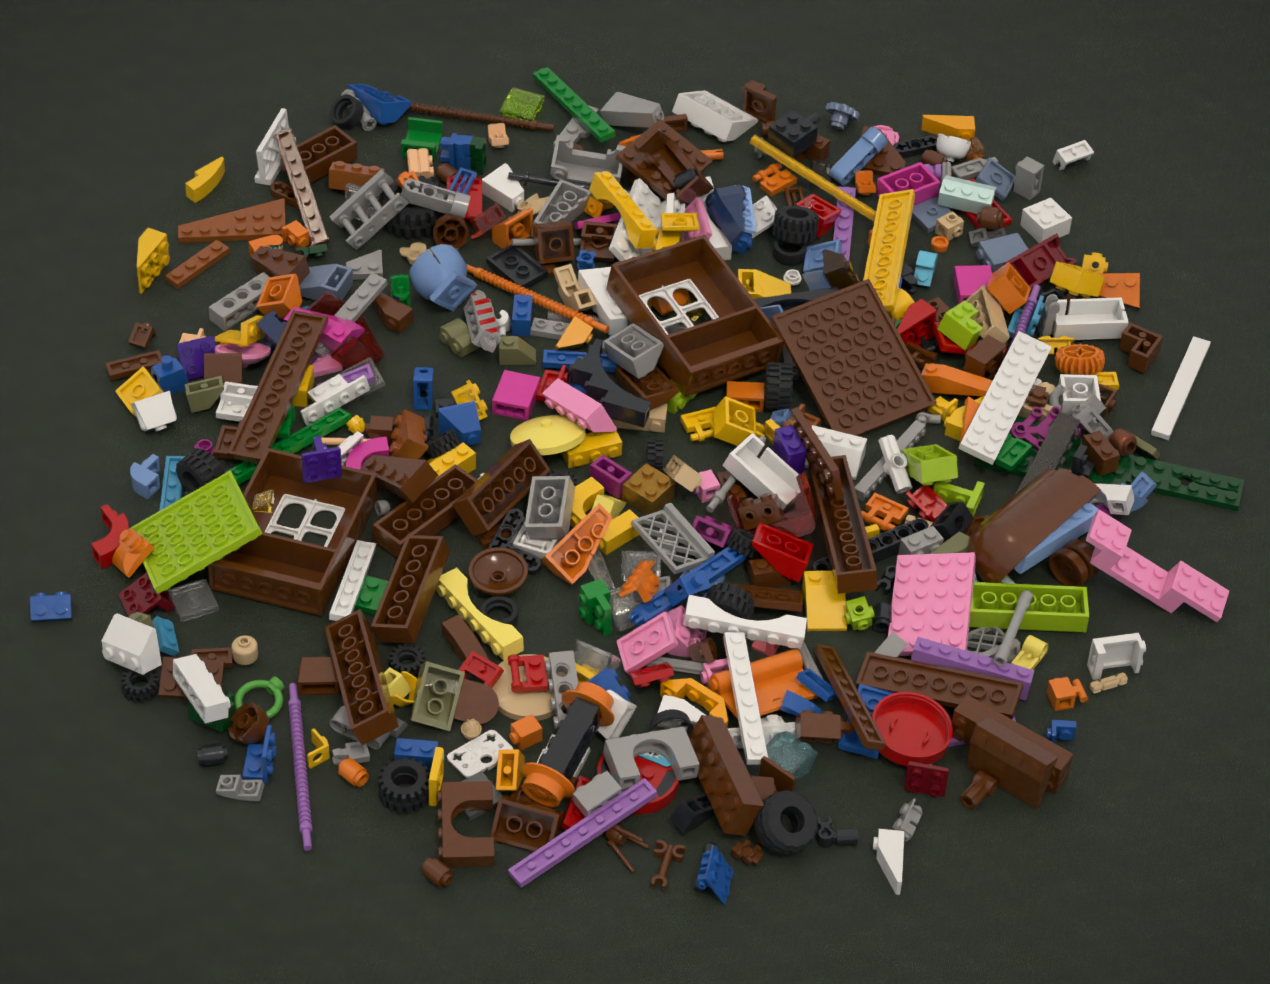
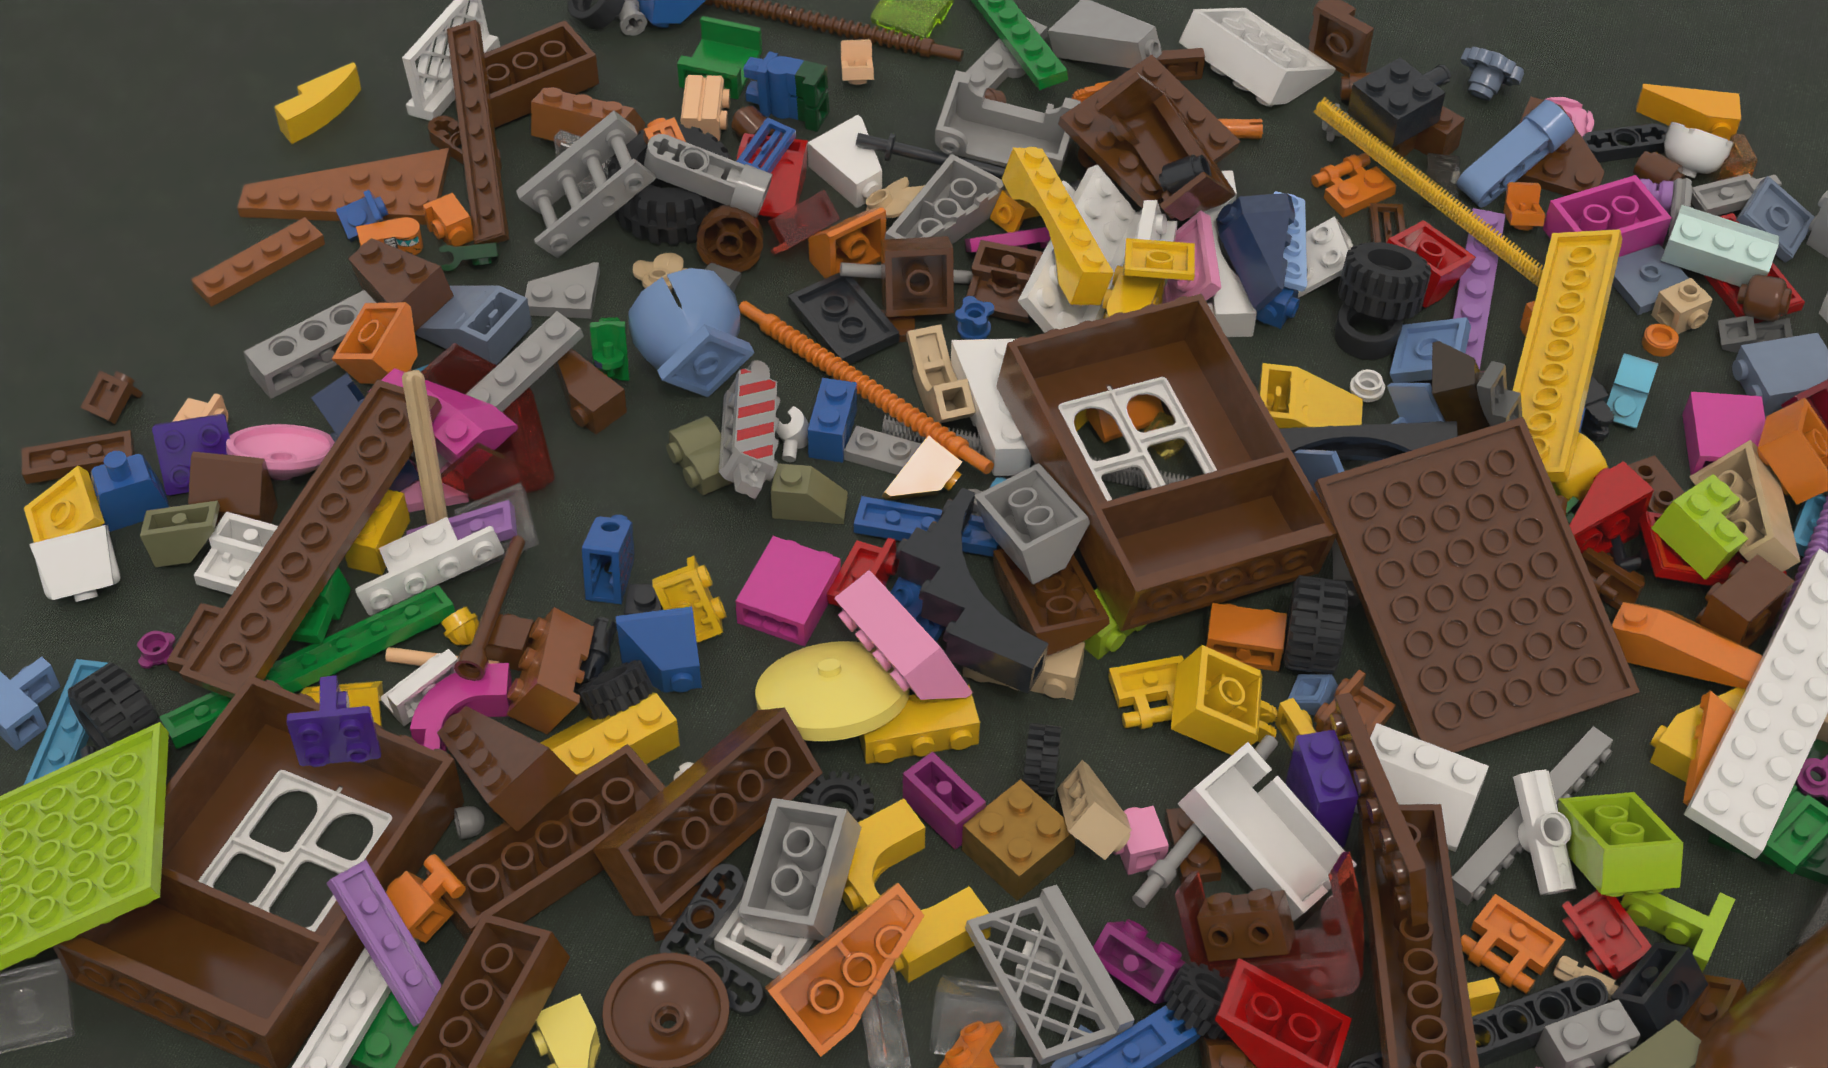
camera: 10 degrees right, 5 degrees up
(151, 257) = (165, 245): yellow slope -> none
(248, 234) = (361, 212): none -> blue bracket
(249, 334) = (289, 414): yellow bracket -> none
(263, 502) = (204, 806): clear yellow slope -> none
(325, 340) = (424, 445): none -> tan axle
(364, 550) = (386, 939): none -> medium lavender tile
(370, 435) = (473, 659): none -> reddish brown piece
(373, 537) = (420, 900): none -> orange brick
(610, 504) = (928, 871): light yellow slope -> none
(854, 270) = (1496, 401): none -> dark grey slope
(928, 418) = (1611, 722): light grey arm -> none
(944, 407) = (1653, 703): yellow bracket -> none

